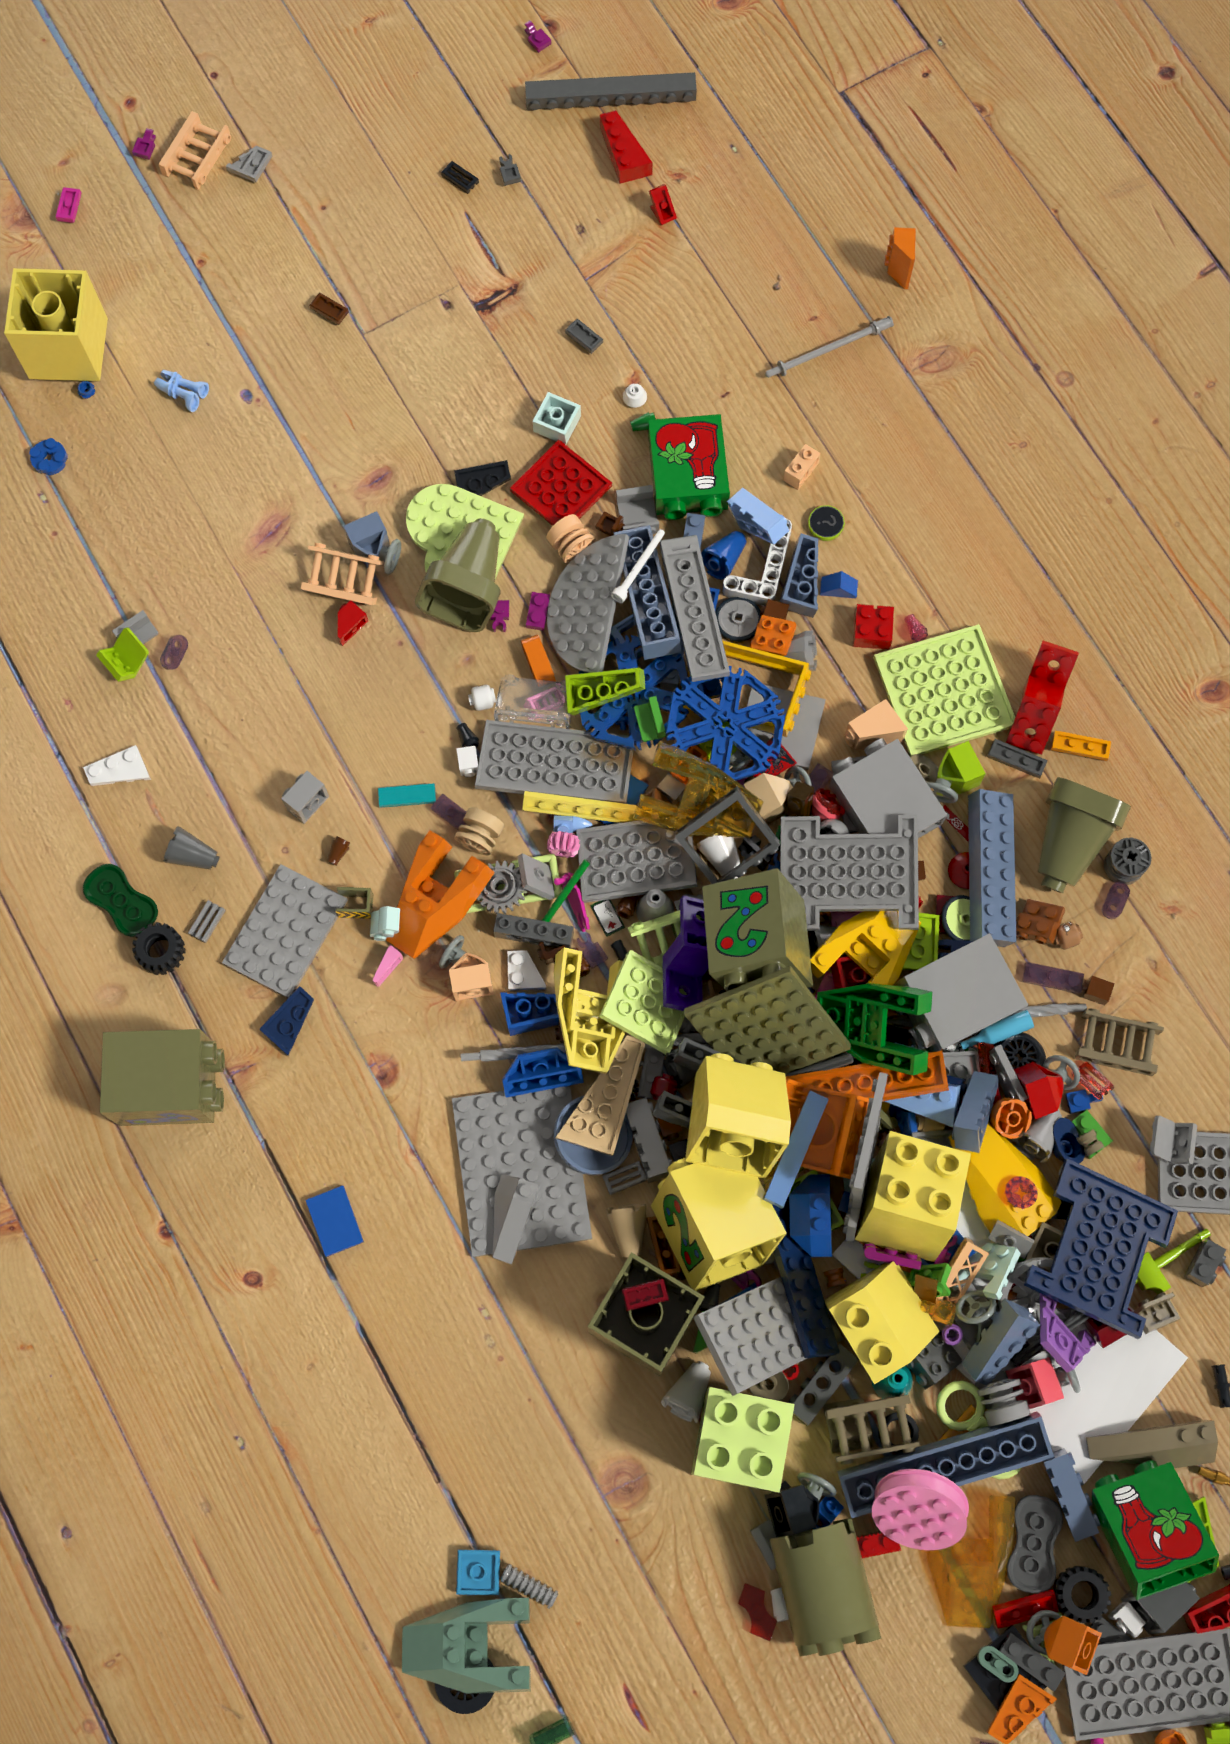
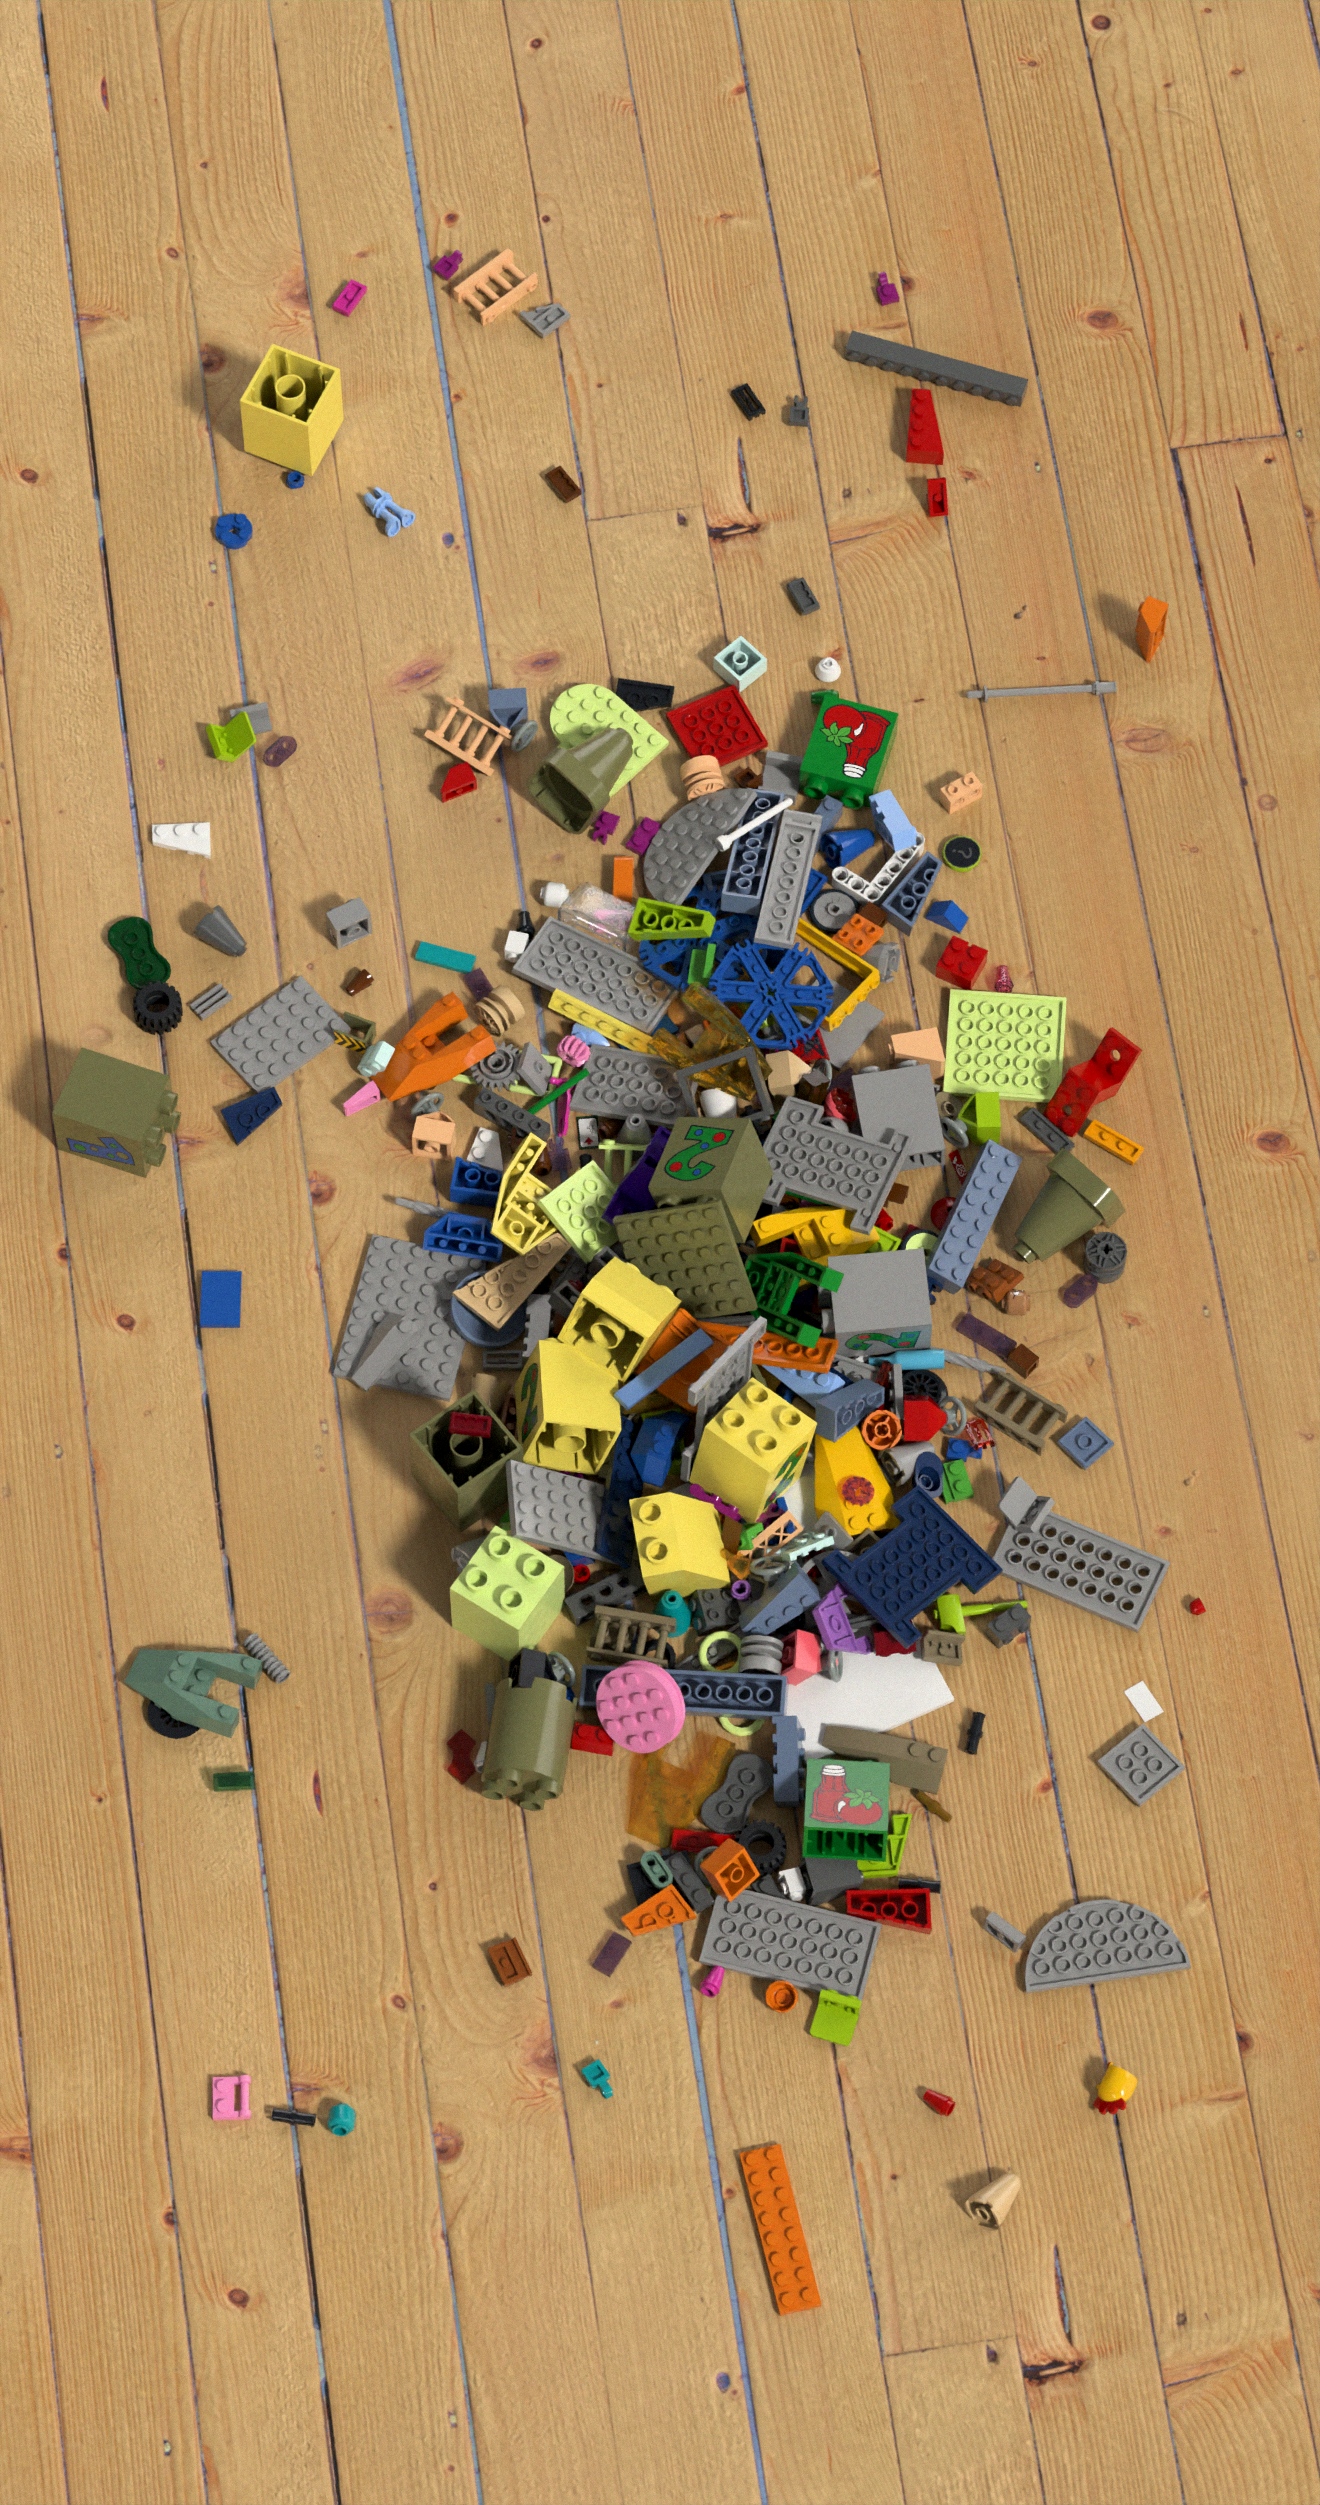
camera: 20 degrees right, 10 degrees down
(478, 1572) = (226, 1630): dark azure plate -> none
(932, 1426) = (716, 1652): none -> light grey tile
(1086, 1139) = (949, 1483): dark tan wheel -> none
(1189, 1049) = (1085, 1443): none -> sand blue plate

